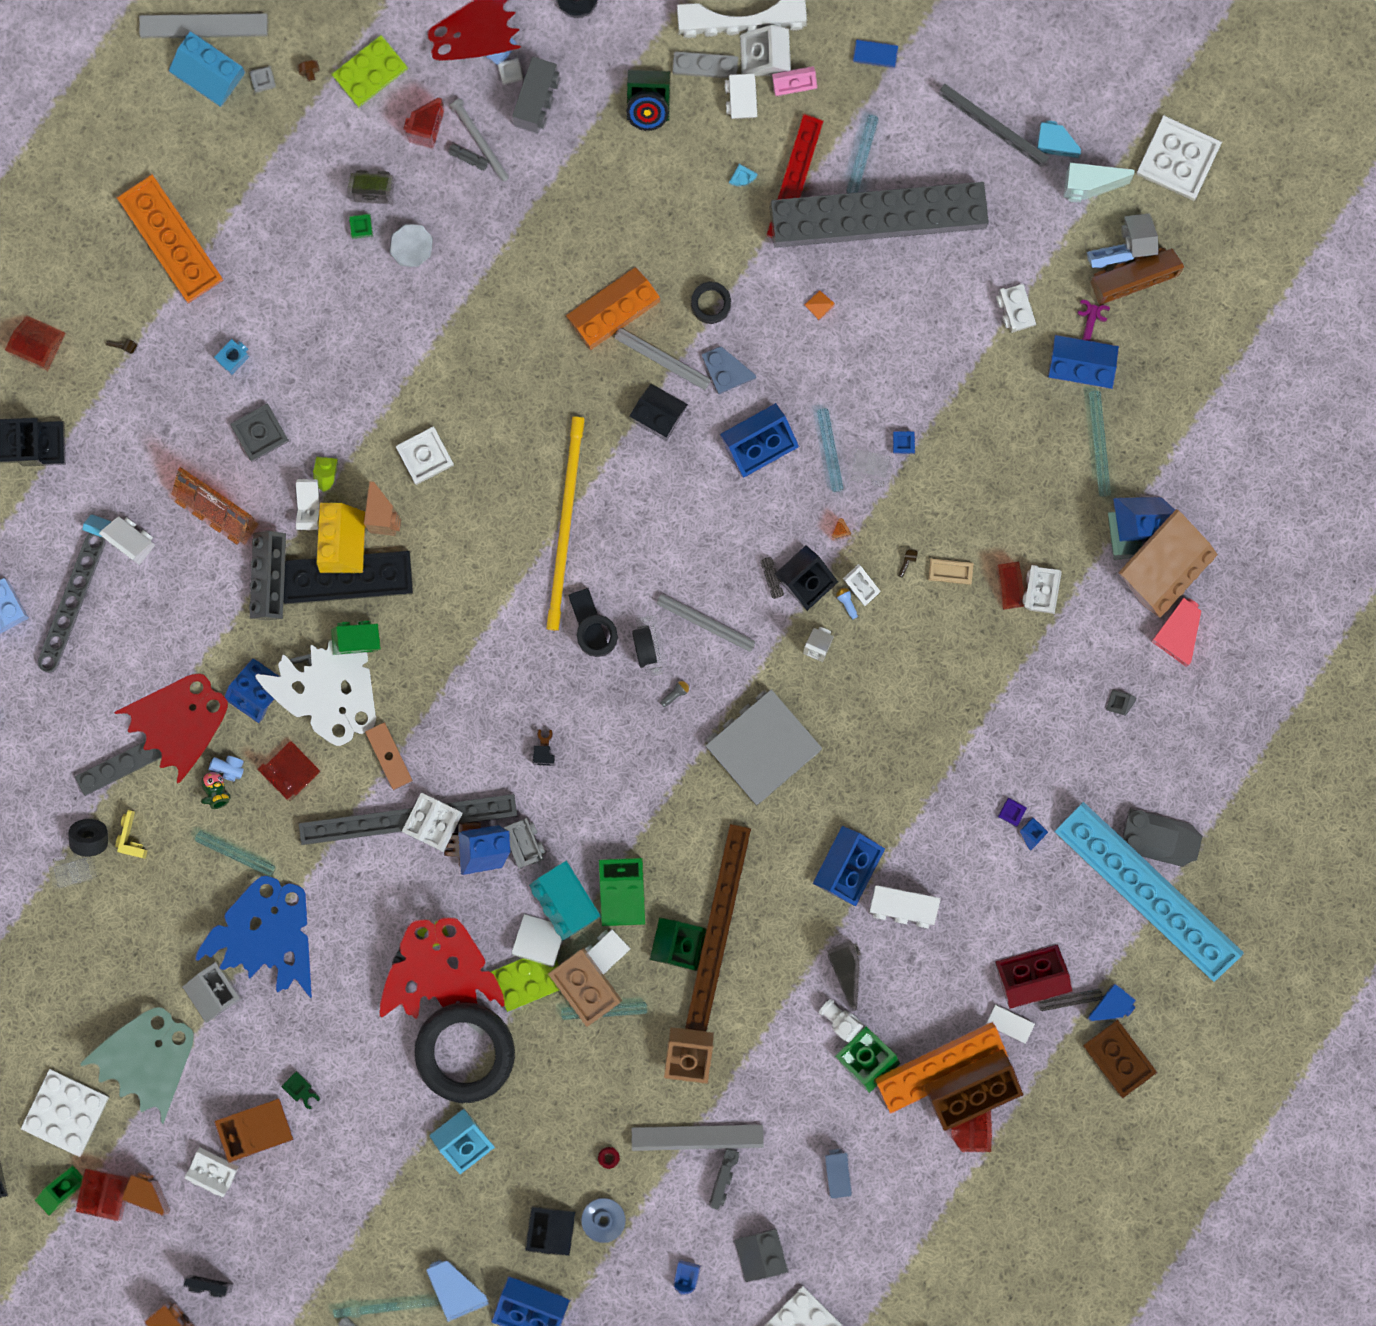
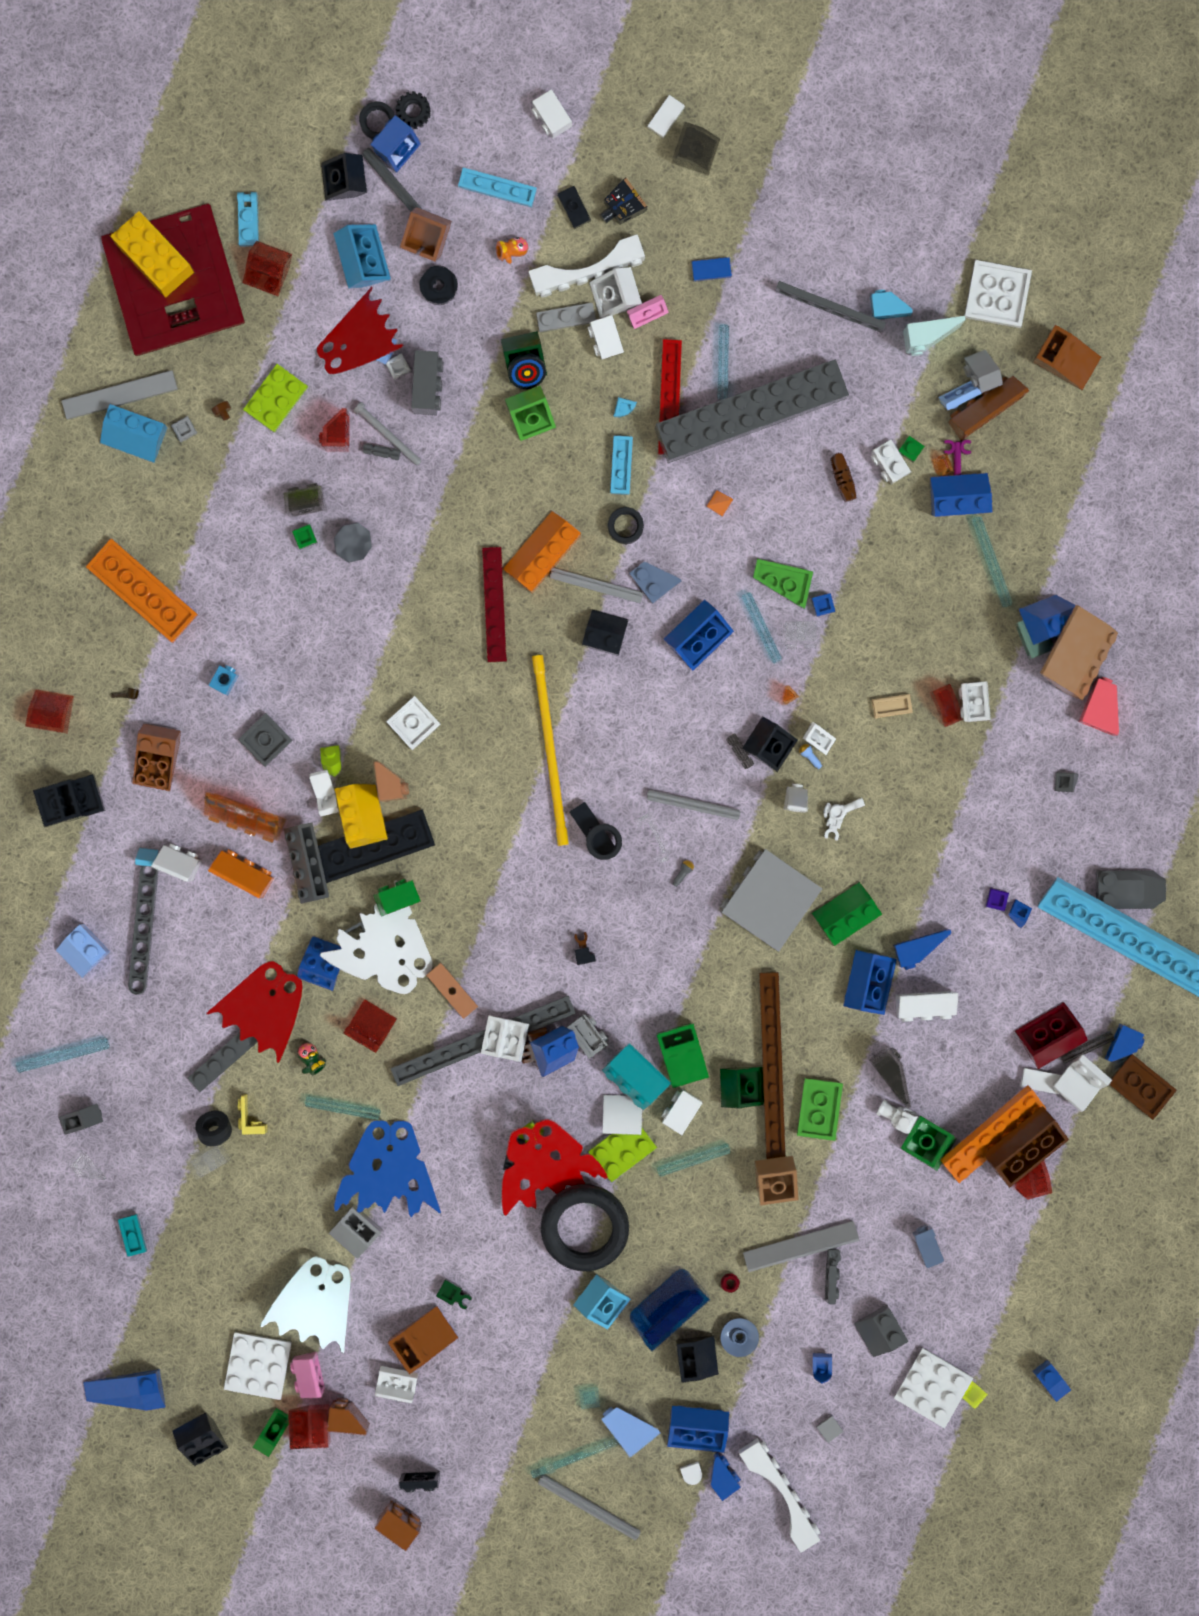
camera: 20 degrees left, 5 degrees up
(117, 1137) = (308, 1375): none -> bright pink slope
(136, 420) = (156, 756): none -> dark orange slope
(195, 568) = (241, 873): none -> orange slope
(230, 769) = (319, 1036): light blue plate -> none
(420, 1245) = (589, 1397): none -> clear light blue tile
(532, 1165) = (668, 1308): none -> clear blue windscreen
(546, 351) = (494, 604): none -> dark red plate
(585, 987) = (673, 1146): medium nougat plate -> none
(639, 156) = (530, 413): none -> bright green slope
(644, 646) = (647, 841): black tyre -> none
(723, 237) = (621, 465): none -> medium azure plate
(757, 991) = (819, 1109): none -> bright green plate
(842, 784) = (847, 914): none -> green slope
(860, 673) = (837, 814): none -> white piece
(868, 405) = (785, 580): none -> bright green wing
(907, 843) = (915, 950): none -> blue slope
(910, 555) = (853, 701): dark brown hand -> none
(960, 311) = (843, 477): none -> reddish brown hinge
(1042, 300) = (911, 449): none -> green plate
(1053, 1036) = (1081, 1082): none -> white bracket
(1072, 325) = (942, 465): none -> clear orange slope
(1237, 244) = (1067, 357): none -> dark orange slope

